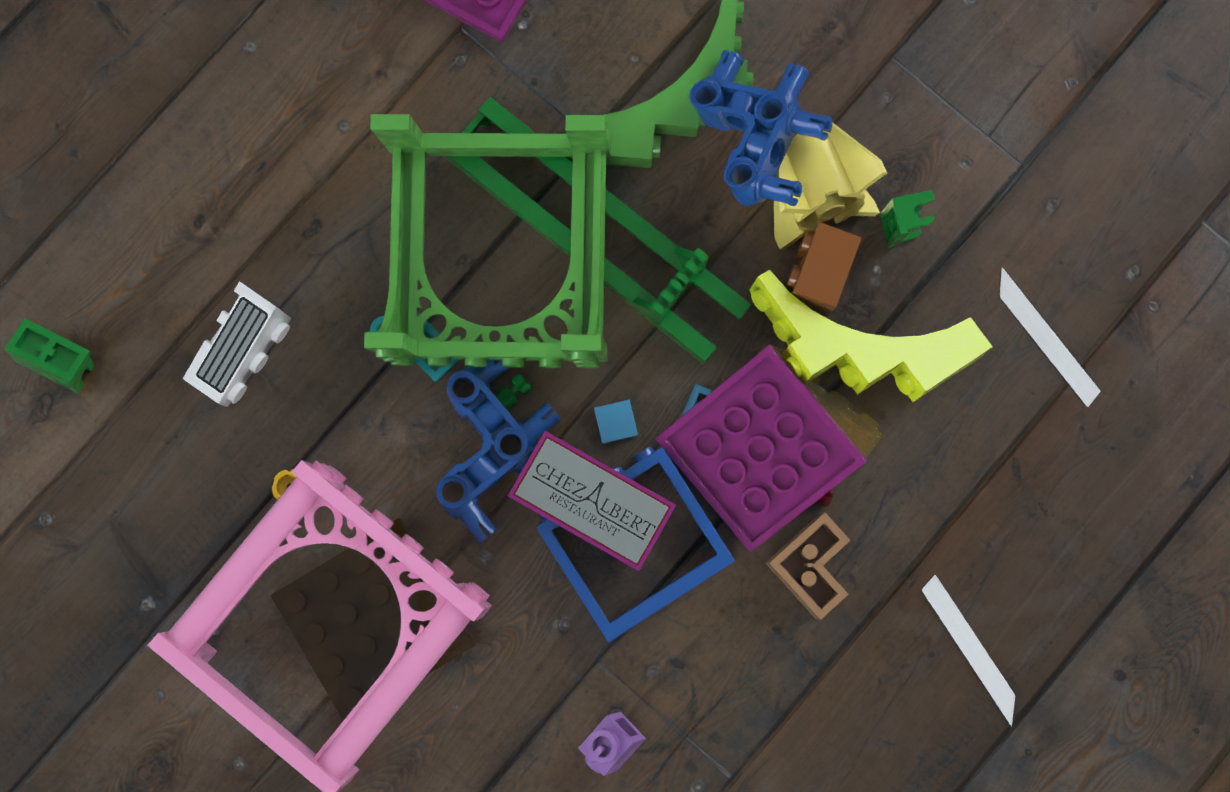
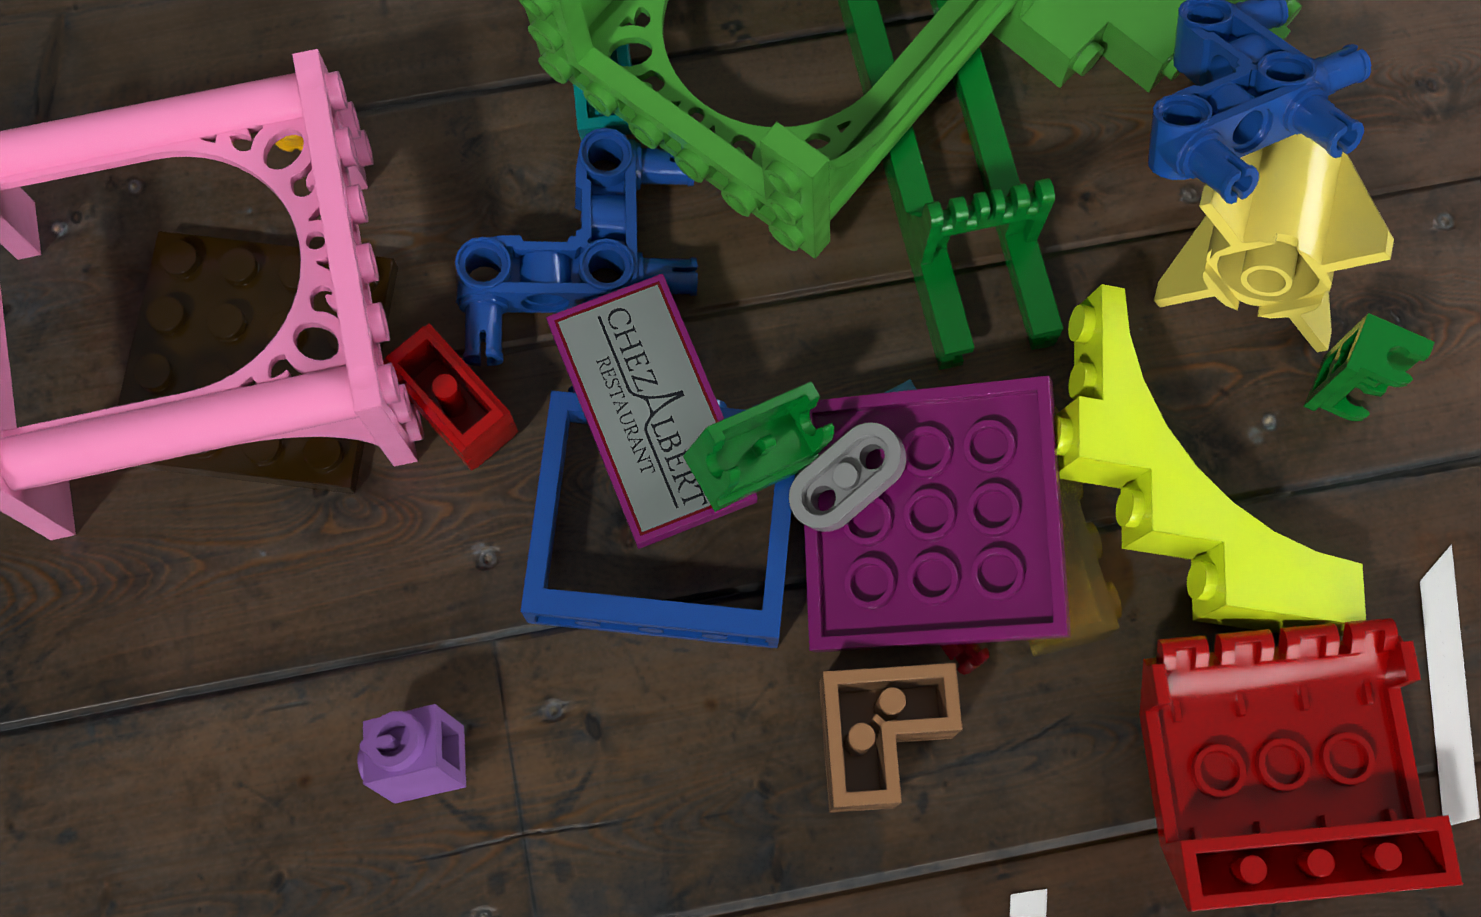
camera: 40 degrees right, 10 degrees down
(489, 567) = (452, 397): none -> red brick
(508, 396) = (653, 217): green piece -> none
(616, 421) = (766, 351): dark azure tile -> none
(661, 484) = (758, 447): none -> green hinge
(710, 461) = (845, 472): none -> light grey plate
(823, 268) = (1204, 342): dark orange brick -> none
(1004, 440) = (1289, 767): none -> red slope

